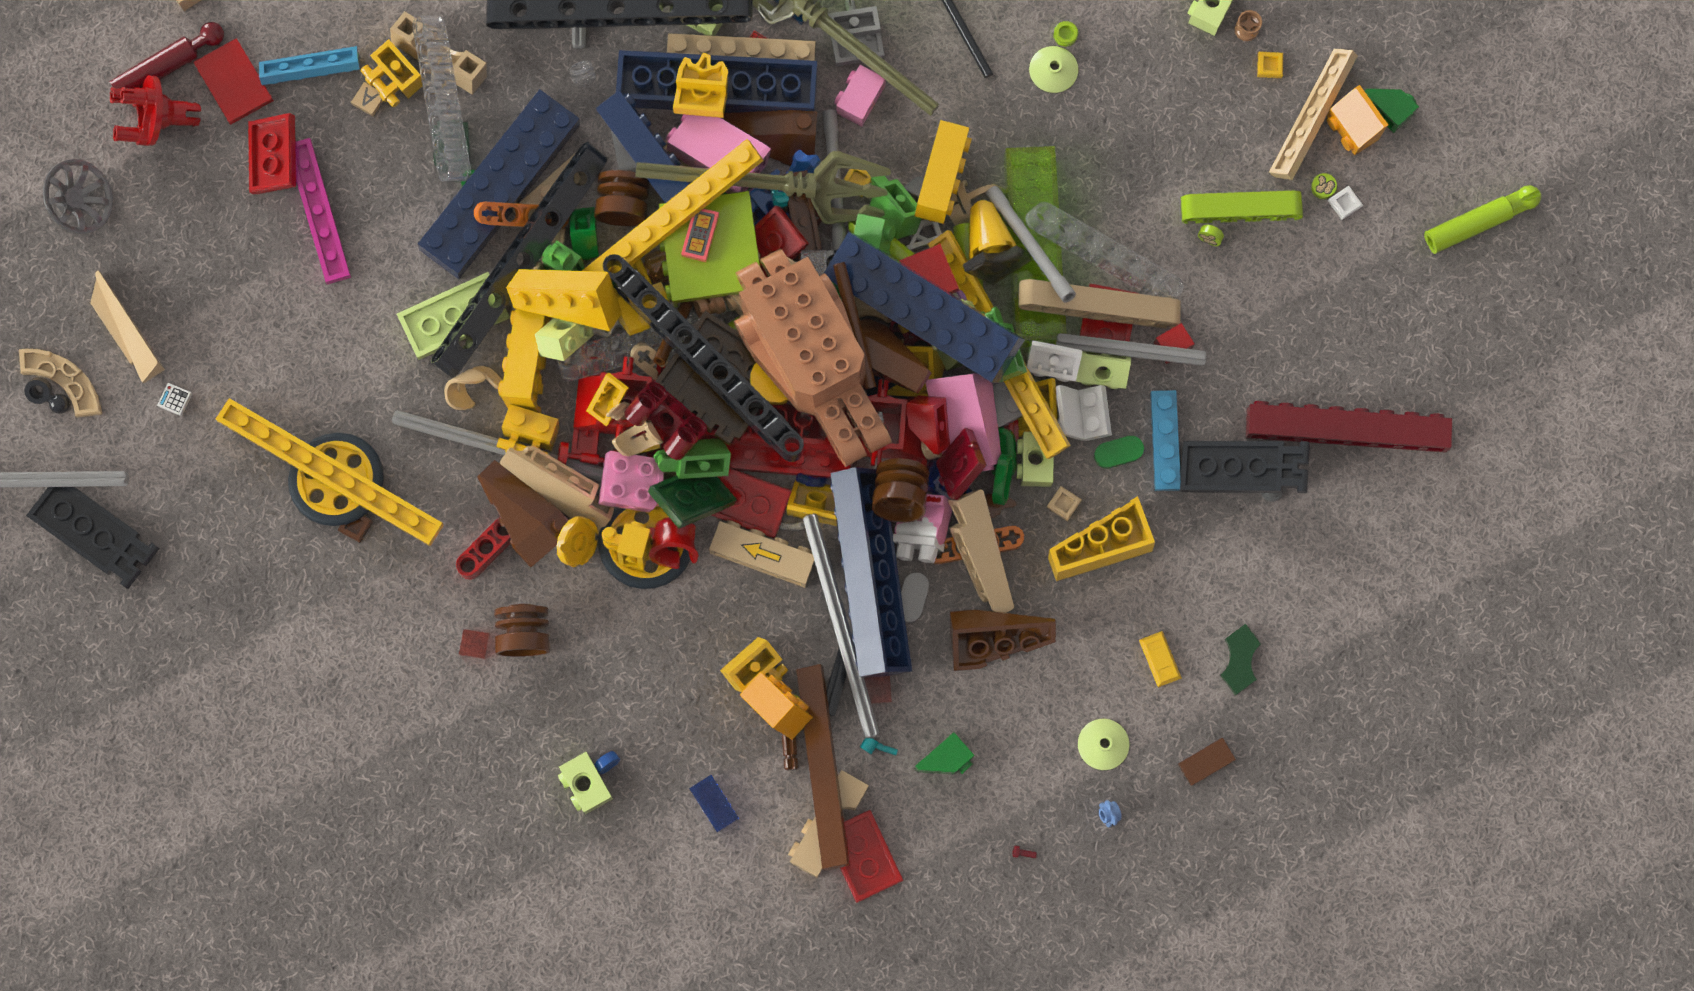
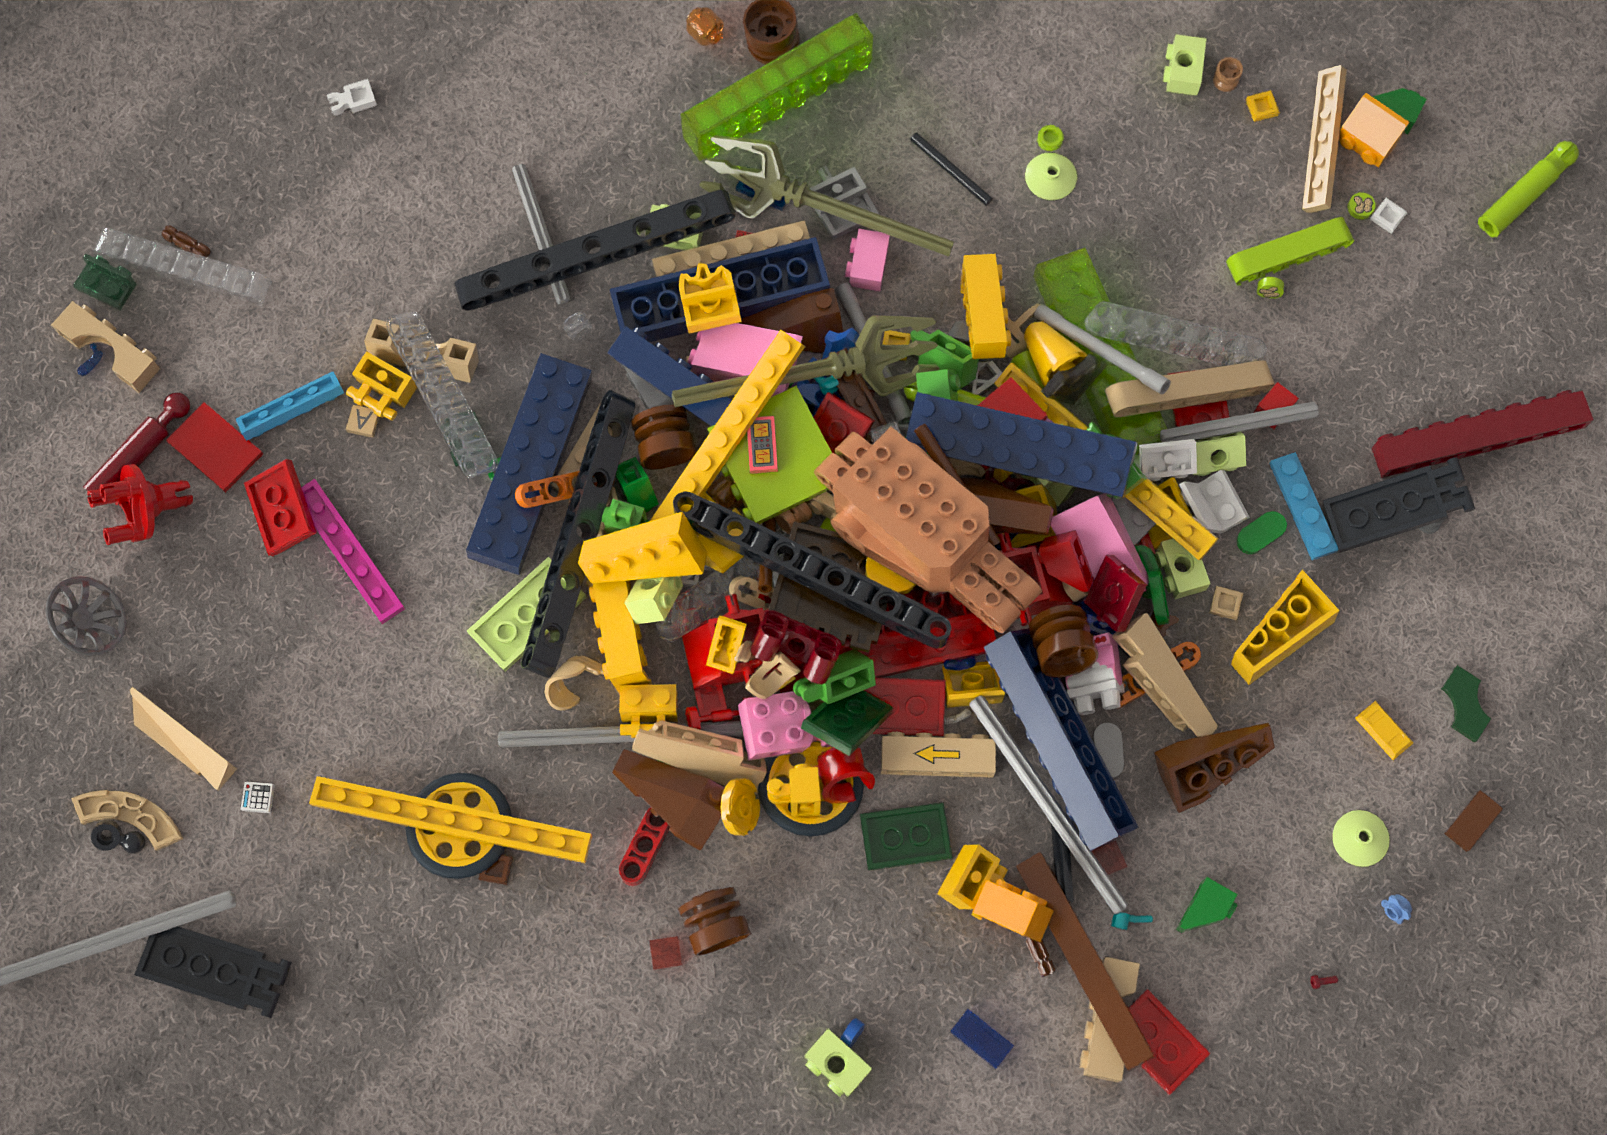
camera: 15 degrees left, 5 degrees down
(711, 613) = (905, 836): none -> dark green tile

